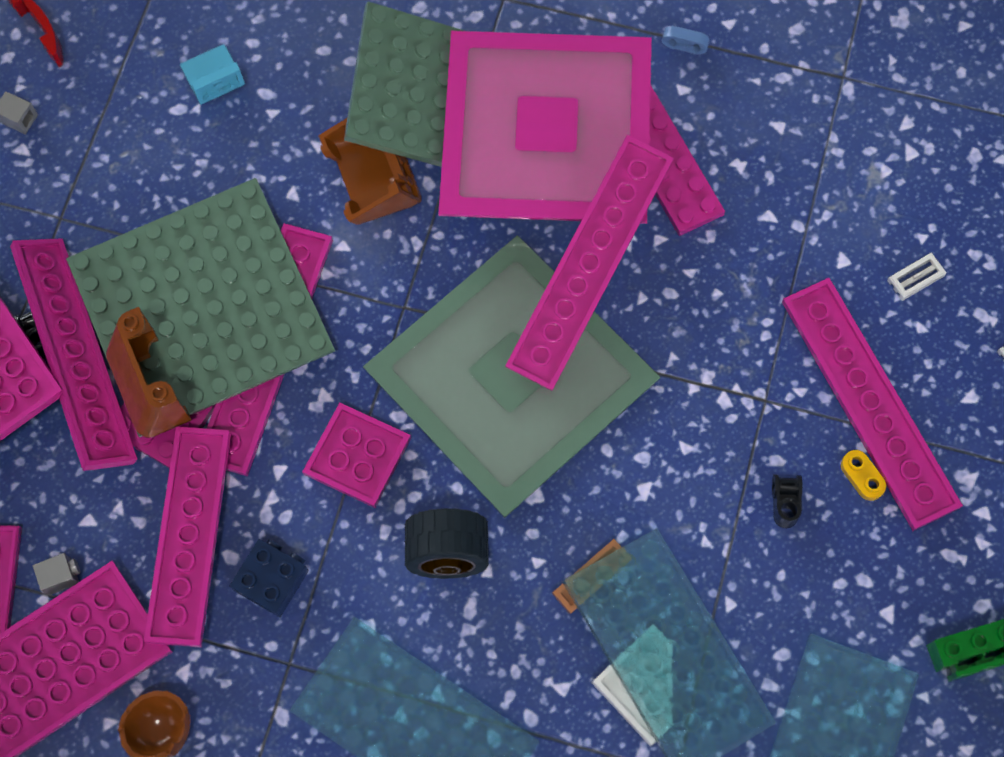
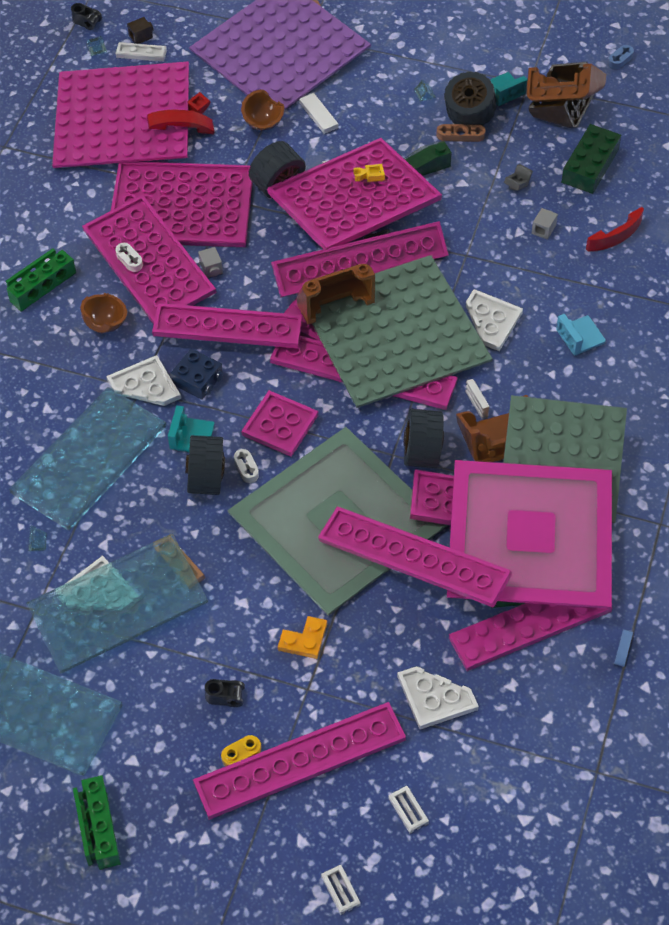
camera: 90 degrees right, 15 degrees down
(51, 702) = (126, 259): none -> white beam
(179, 181) = (492, 318): none -> white plate
(282, 653) = (145, 382): none -> white plate
(319, 199) = (477, 399): none -> white tile
(375, 577) = (184, 427): none -> teal bracket
(398, 256) = (423, 438): none -> black wheel
(426, 491) = (242, 467): none -> white beam
(482, 247) = (432, 497): none -> dark pink plate
(700, 401) = (305, 643): none -> light orange plate
(769, 248) = (435, 697): none -> white plate

